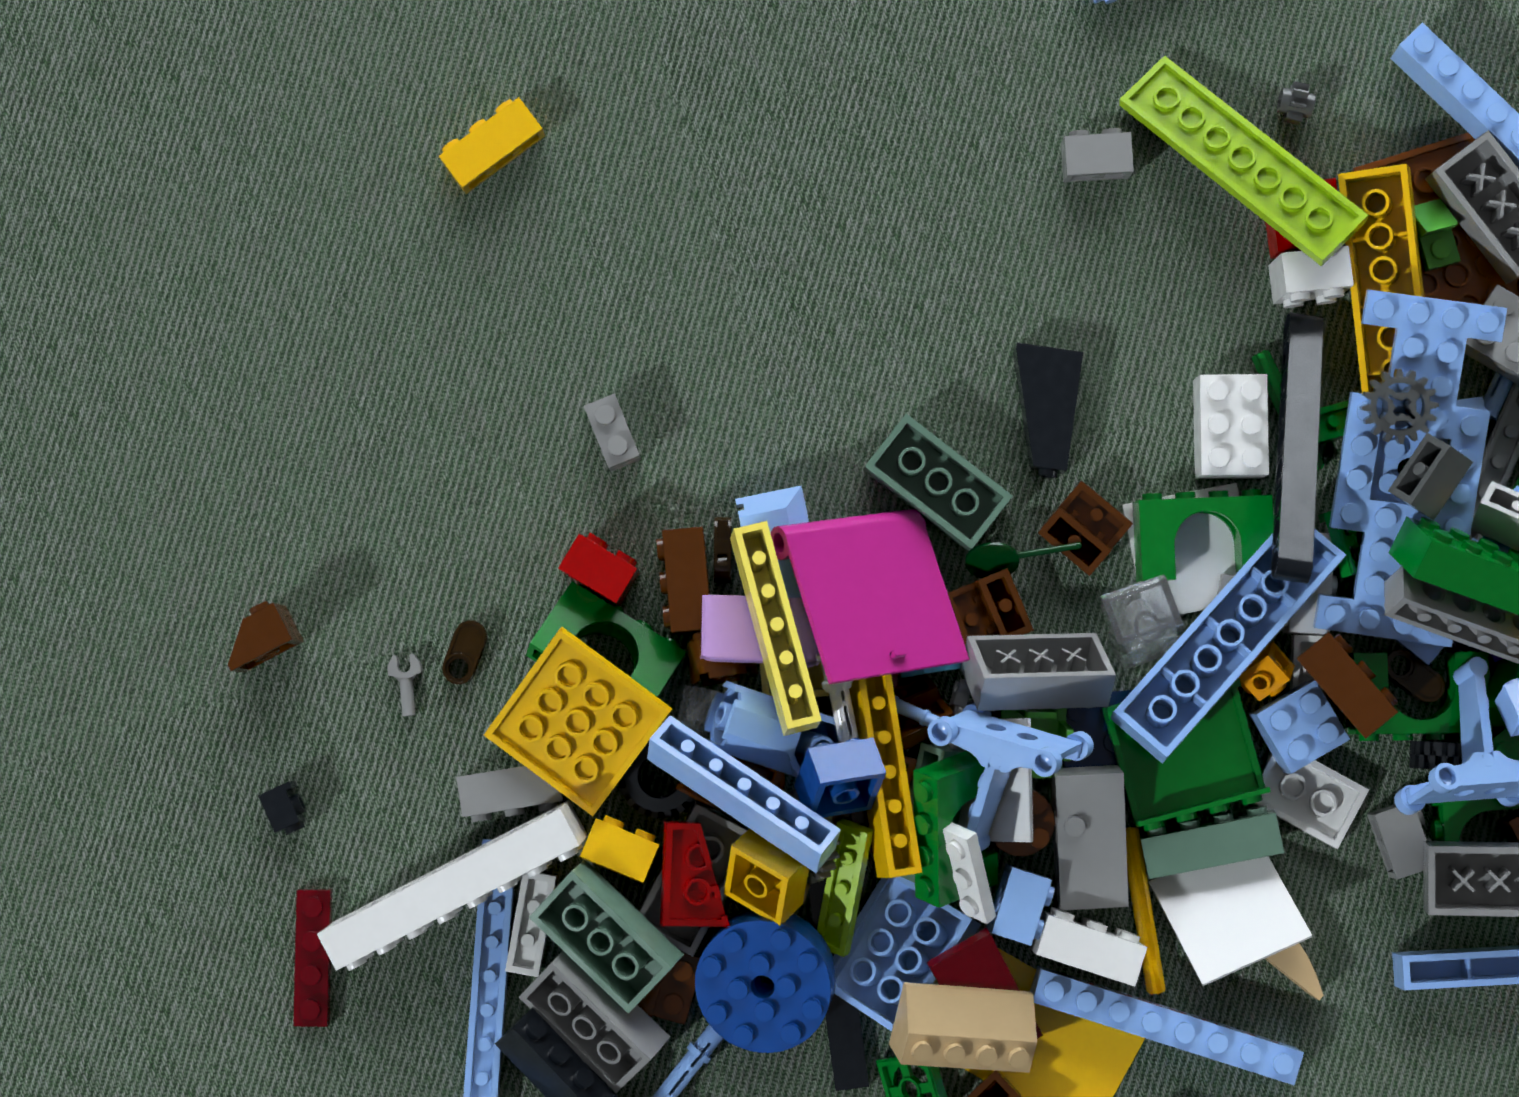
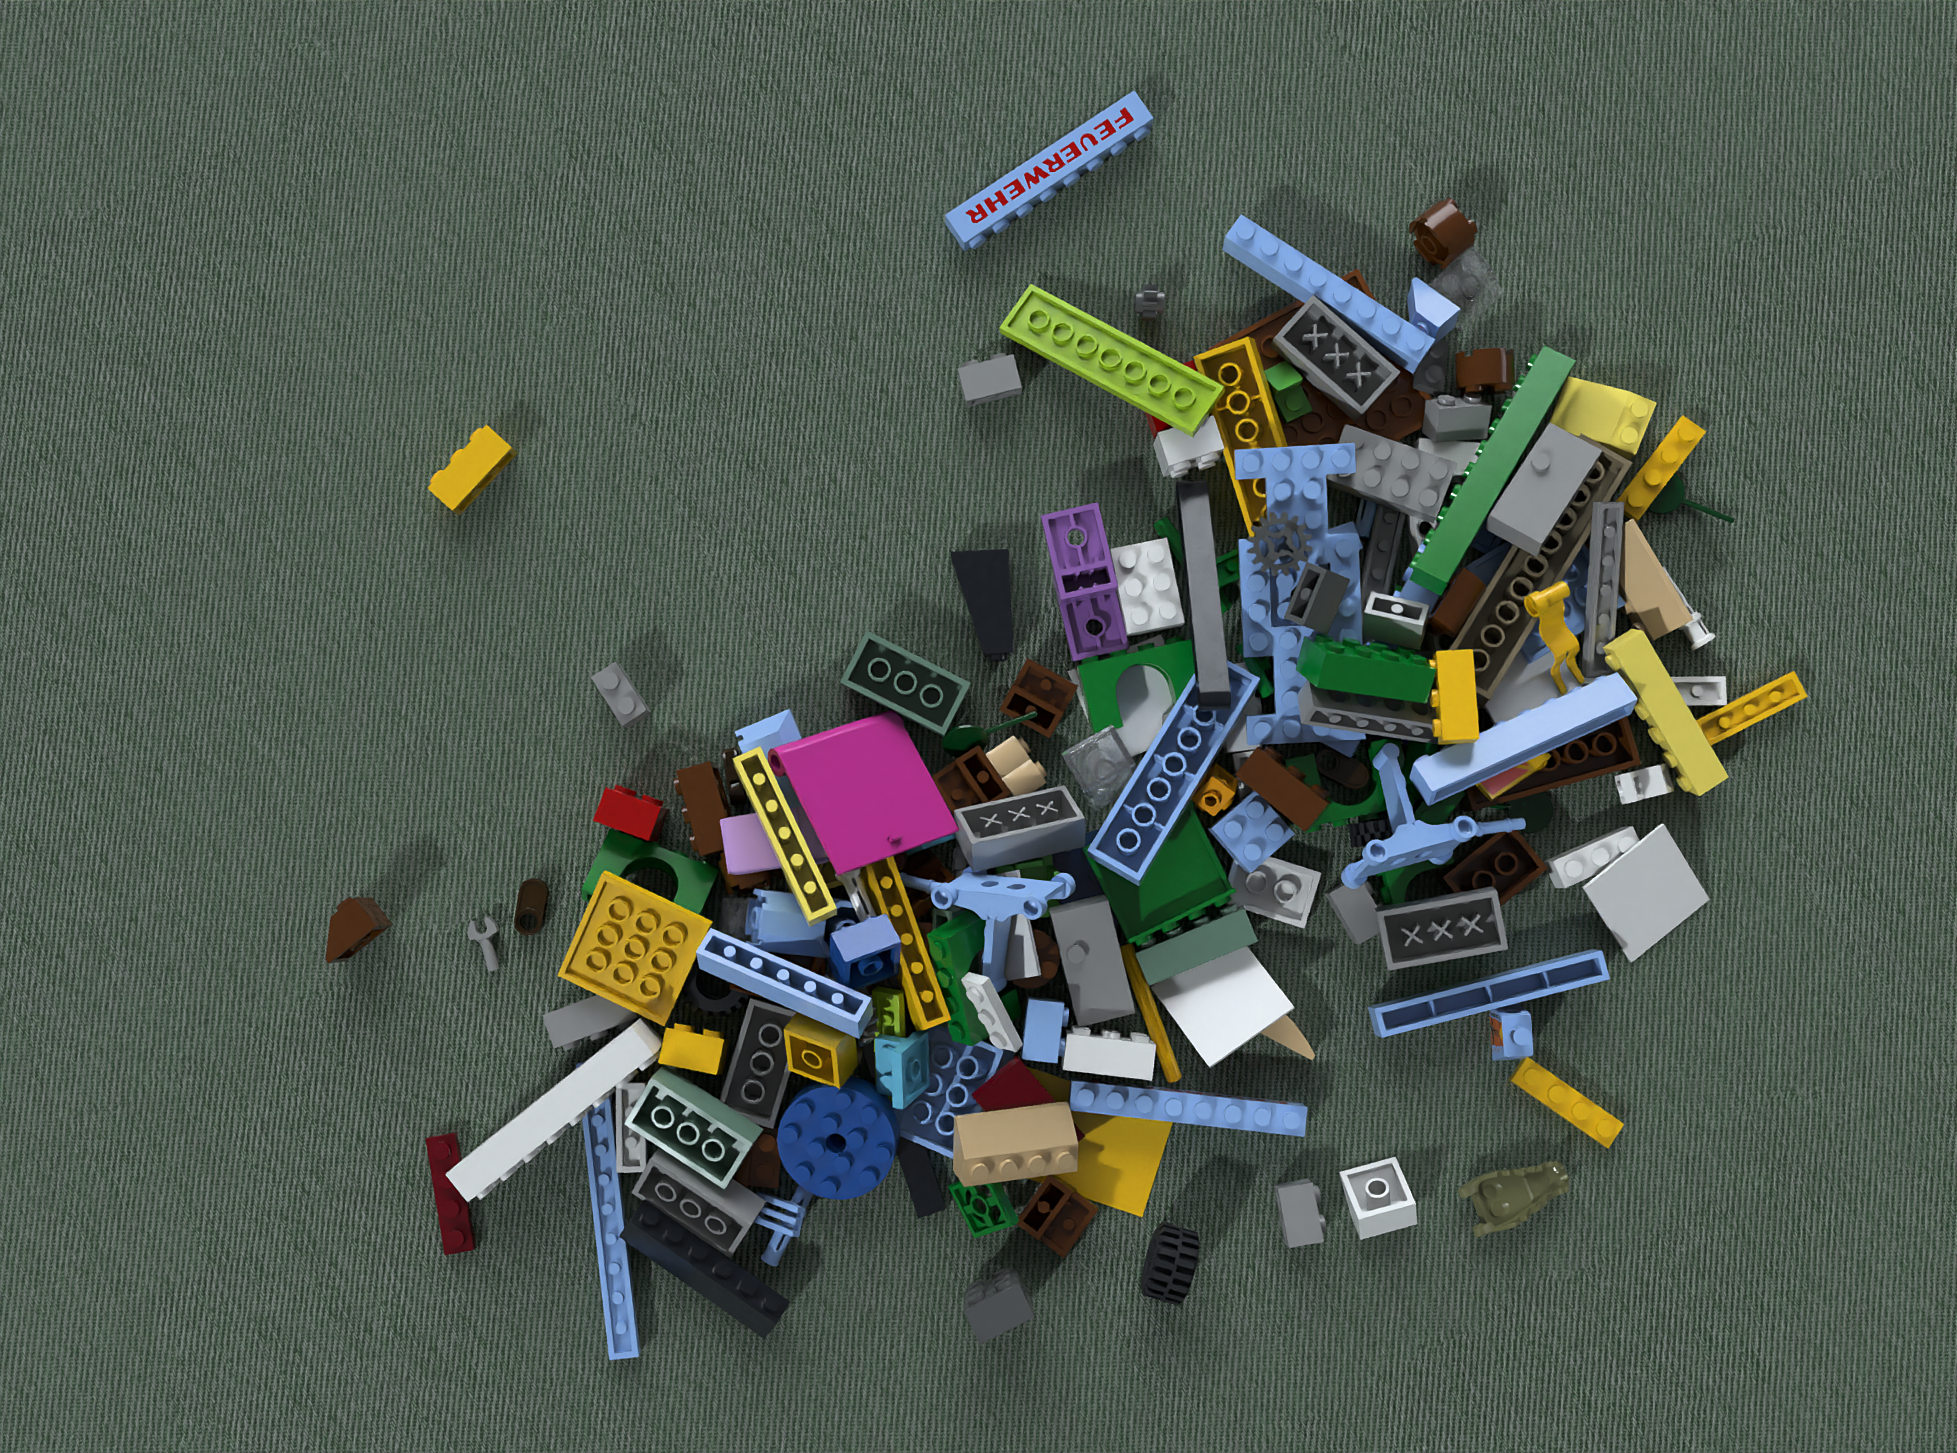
camera: 15 degrees left, 0 degrees up
(284, 808) = (401, 1070): black brick -> none
(679, 1070) = (797, 1222): none -> light blue tile
(688, 881) = (755, 1065): red wing -> none
(853, 915) = (902, 1067): none -> medium azure bracket
(1044, 601) = (1016, 768): none -> tan brick
(1163, 406) = (1084, 581): none -> medium lavender bracket

